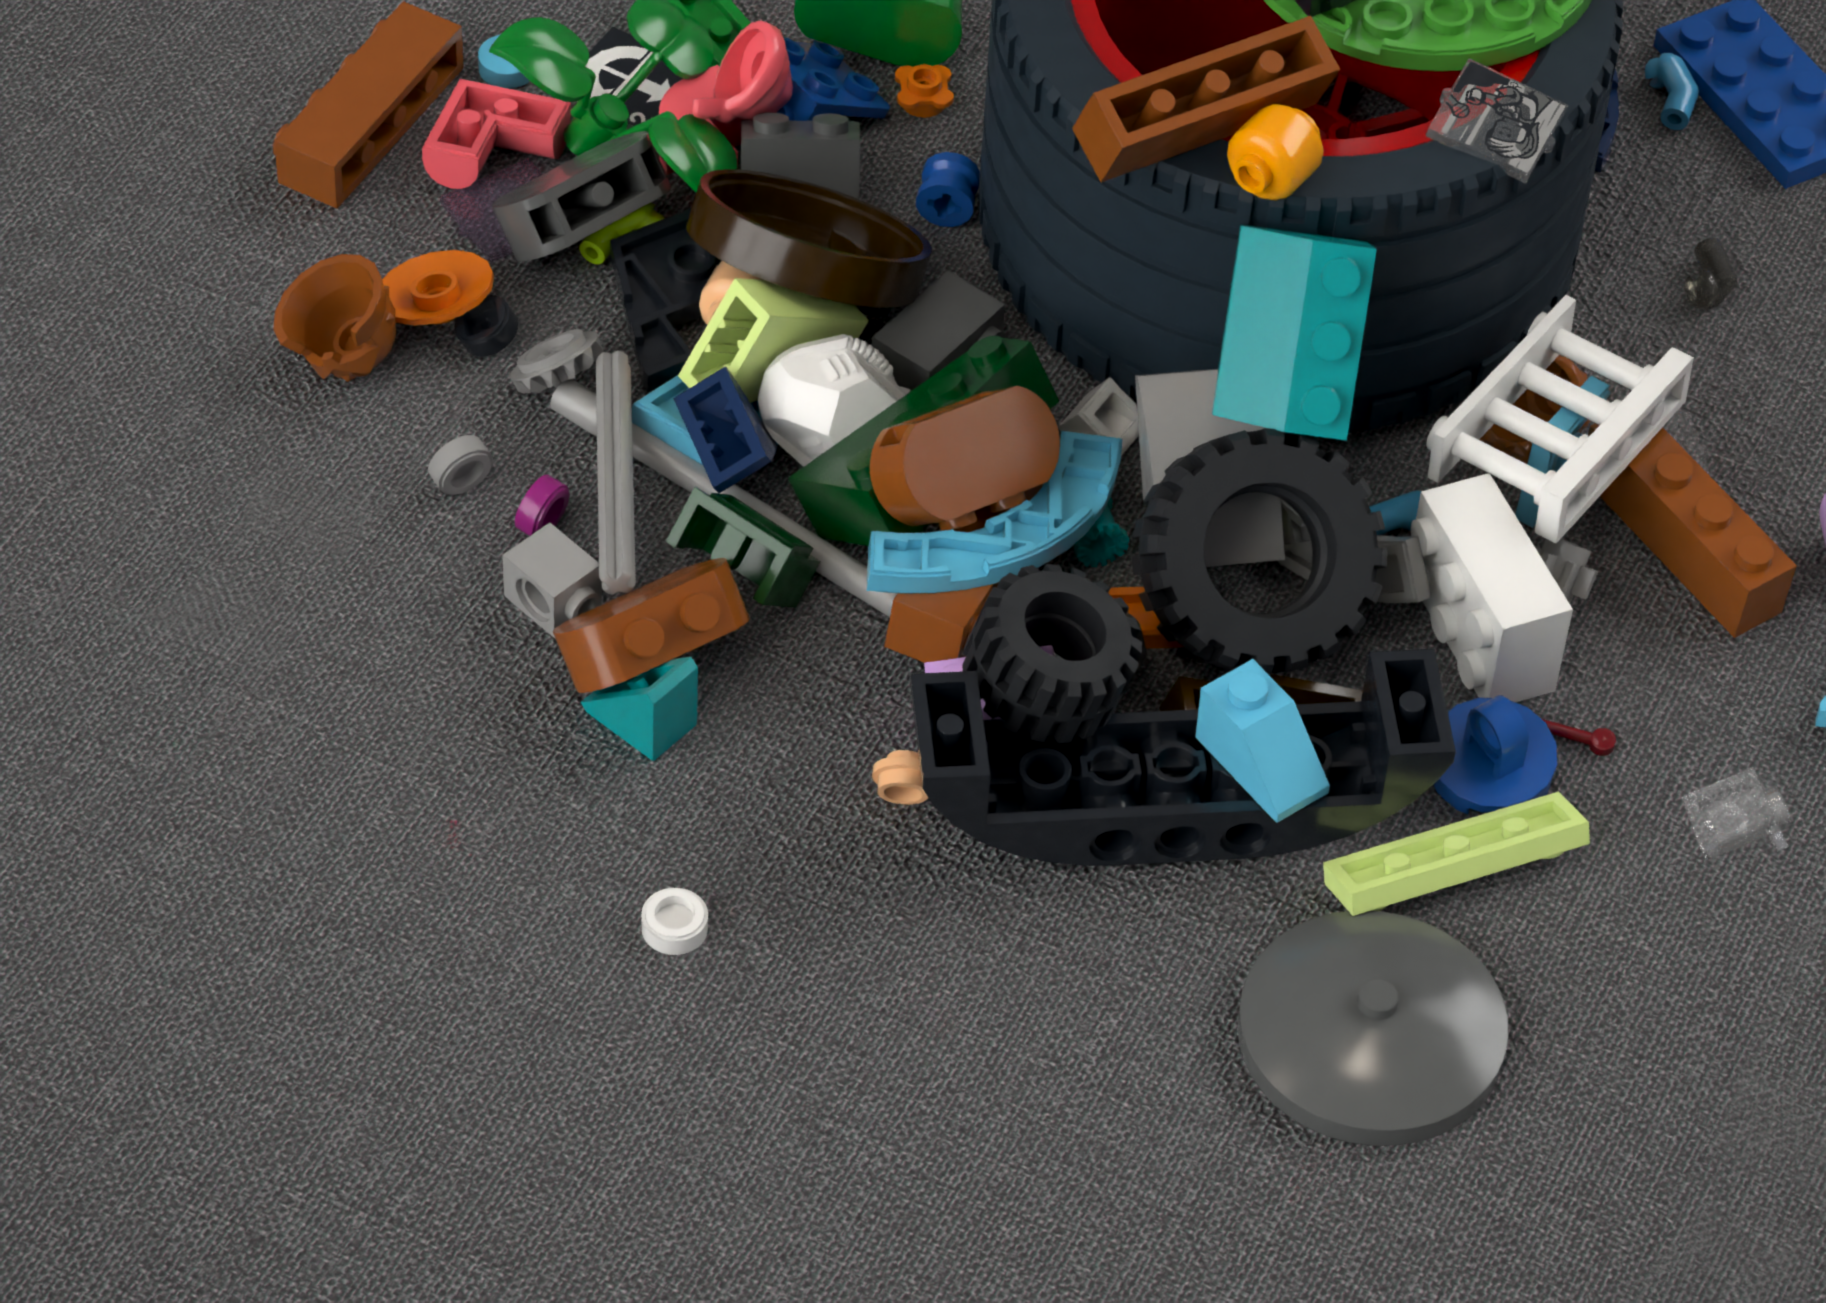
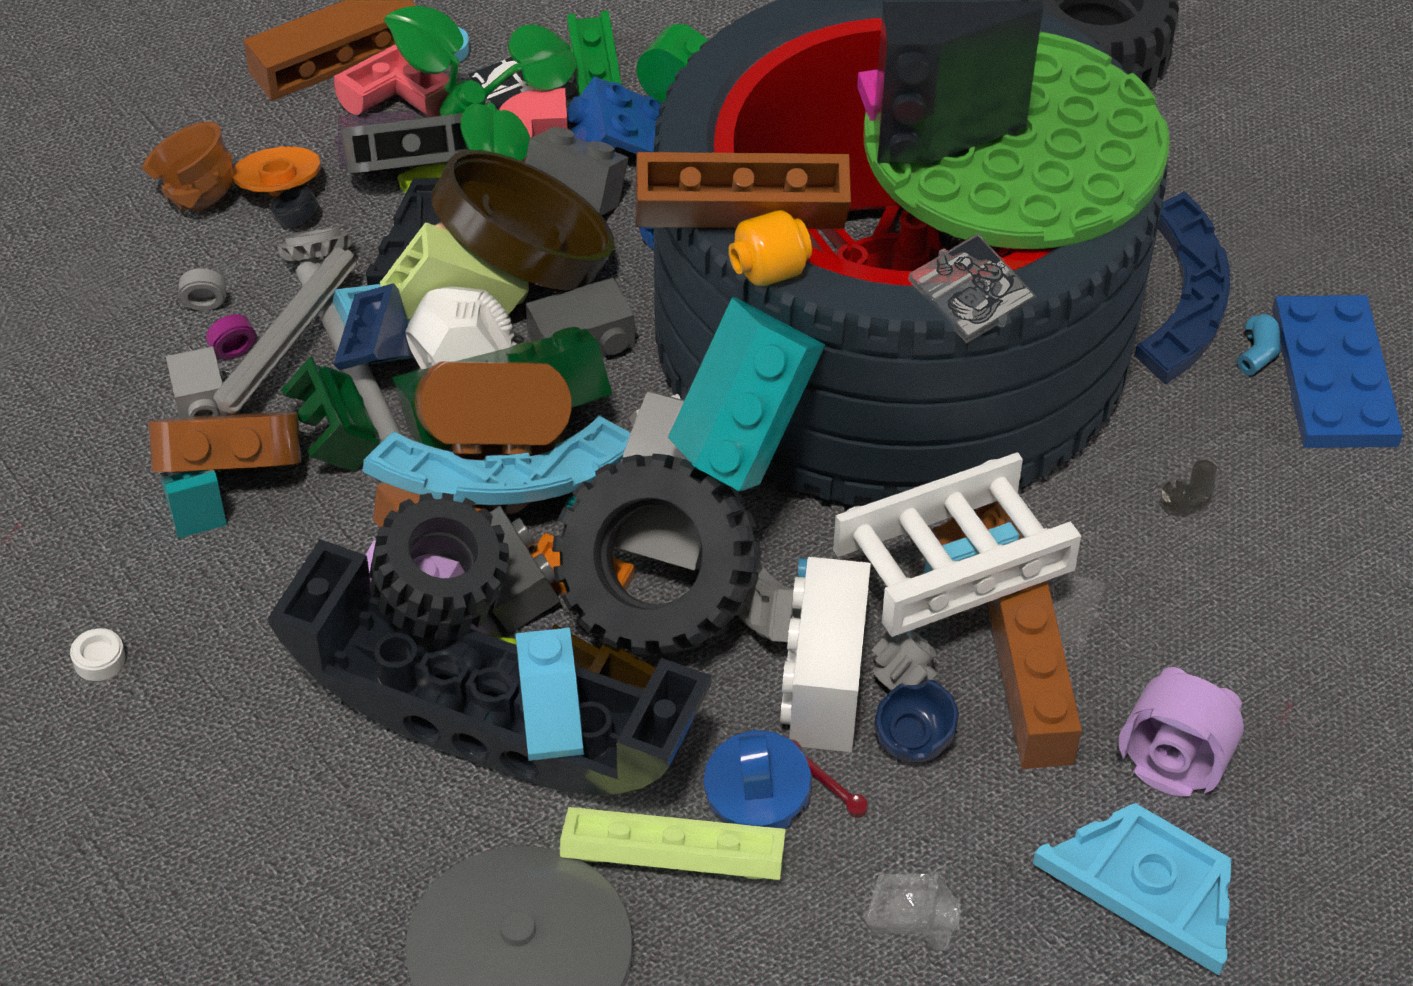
camera: 30 degrees right, 0 degrees up
(751, 77) = (567, 105): coral hat -> none
(1616, 626) = (916, 721): none -> dark blue hair

